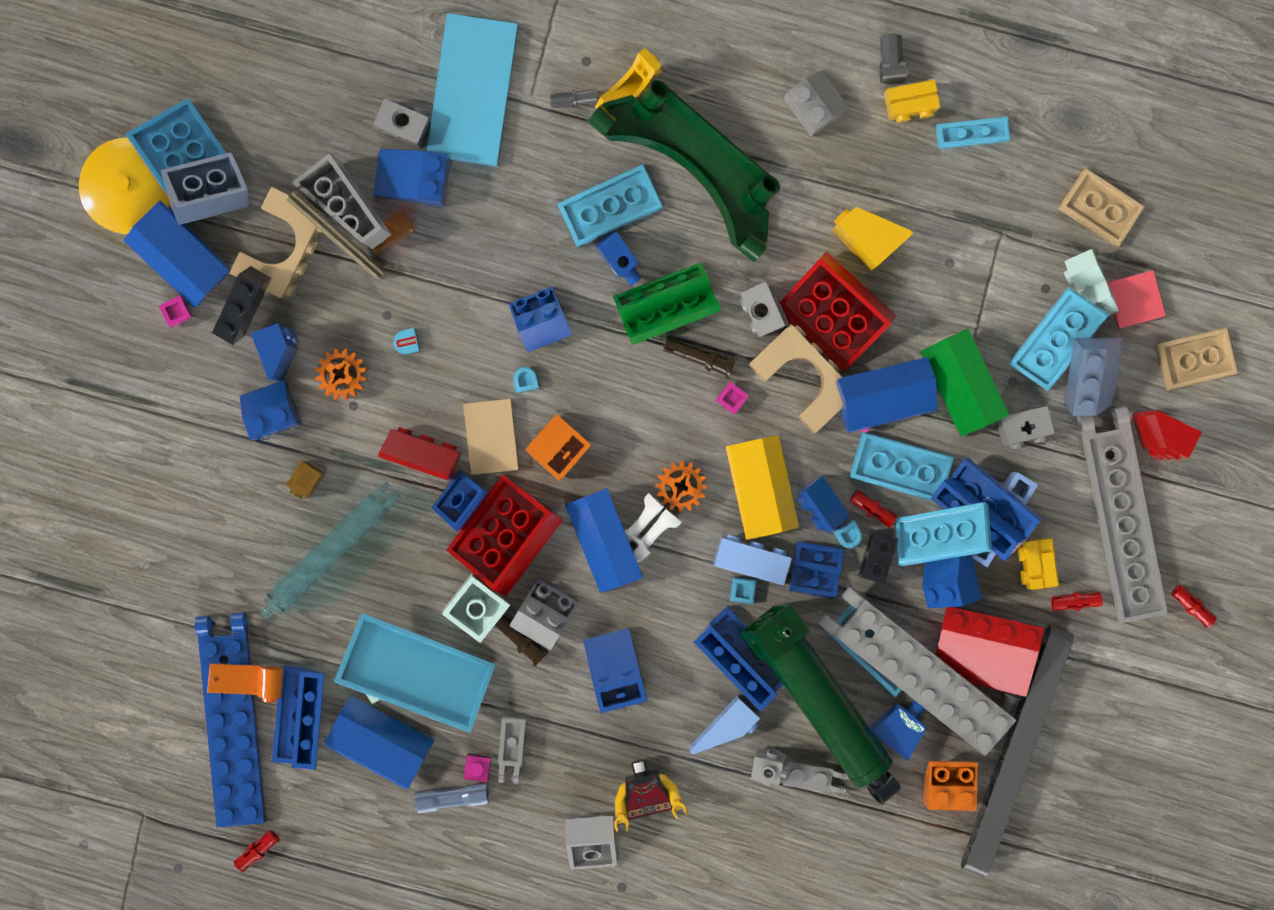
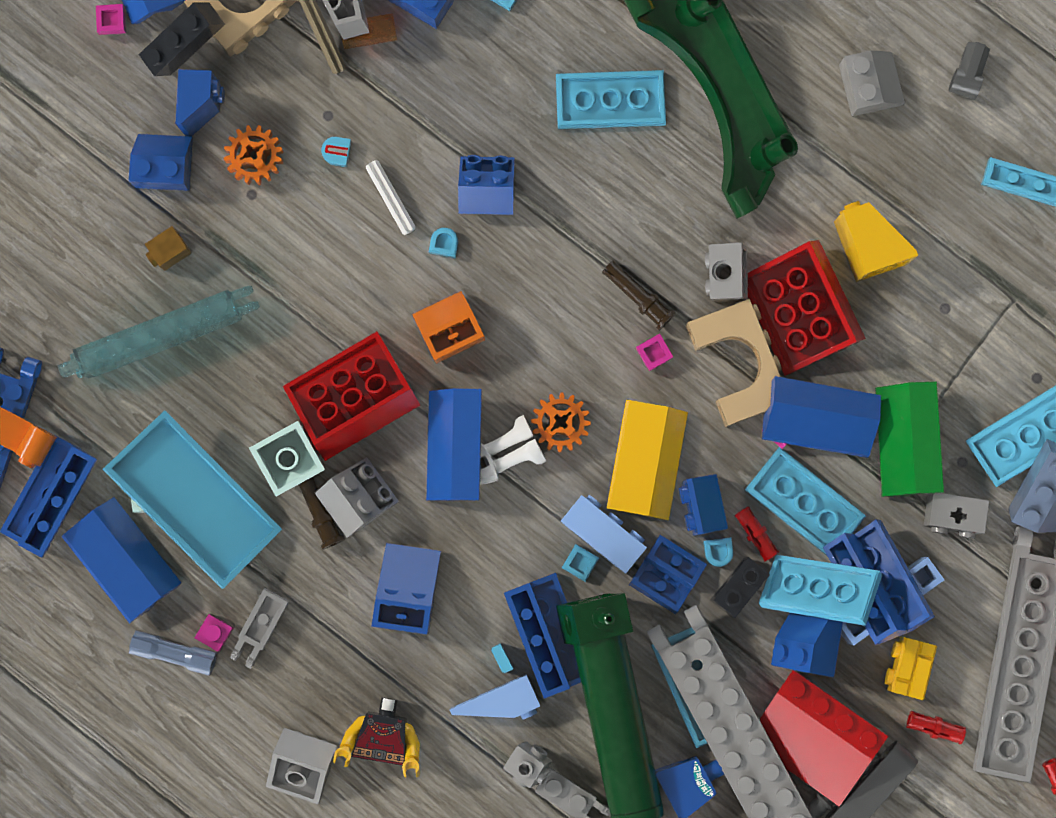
camera: 25 degrees right, 5 degrees down
(420, 453) = (300, 271): red slope -> none
(459, 500) = (320, 339): blue slope -> none
(466, 361) = (390, 197): none -> white axle
(491, 436) = (382, 286): tan tile -> none
(611, 250) = (596, 142): blue torso -> none
(666, 303) = (627, 224): green slope -> none
(713, 692) = (501, 658): none -> medium azure tile
(912, 100) = (973, 121): yellow brick -> none

